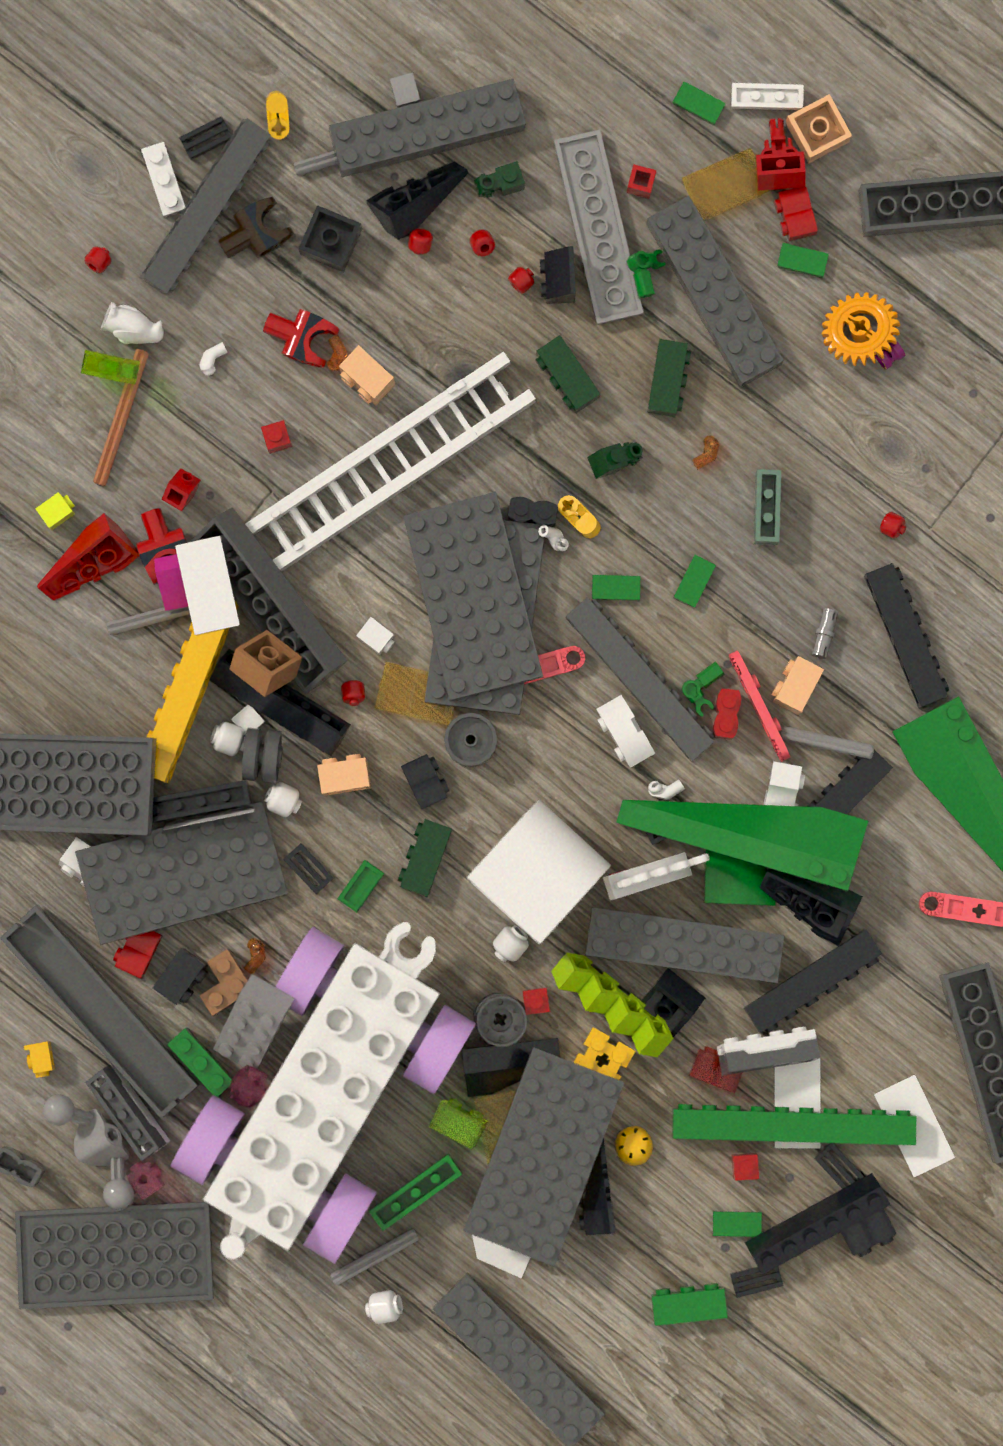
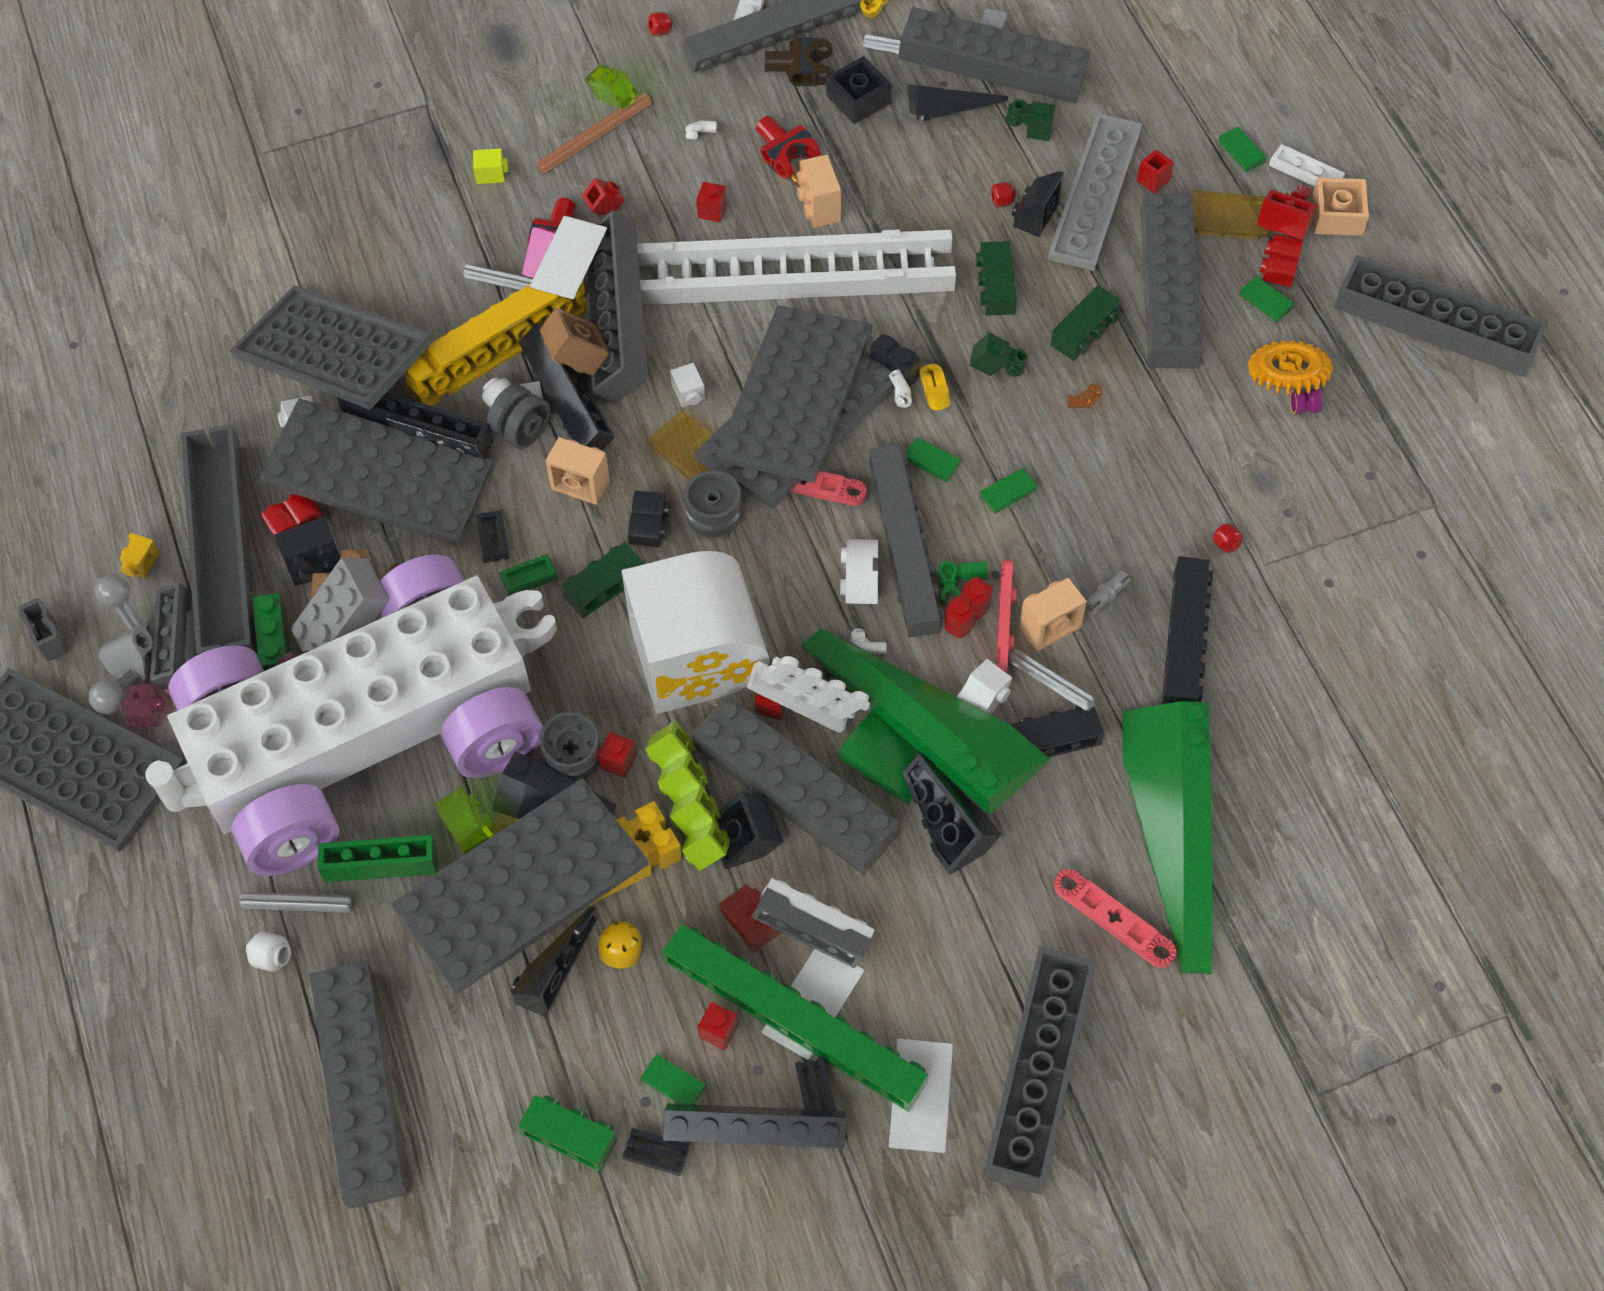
camera: 30 degrees right, 25 degrees down
(94, 553) = (496, 212): red wedge -> none
(131, 325) = (650, 71): white animal -> none
(282, 799) = (511, 466): white head -> none
(353, 692) = (636, 419): red piece -> none
(420, 241) = (933, 129): red piece -> none
(482, 243) = (986, 154): red piece -> none
(500, 1257) = (419, 973): white sticker -> none
(510, 943) = (629, 693): white head -> none
(639, 264) = (1116, 228): green bar -> none
(767, 507) = (1114, 459): sand green brick -> none
(812, 981) = (904, 888): black brick -> none
(868, 1233) = (804, 1169): black brick -> none

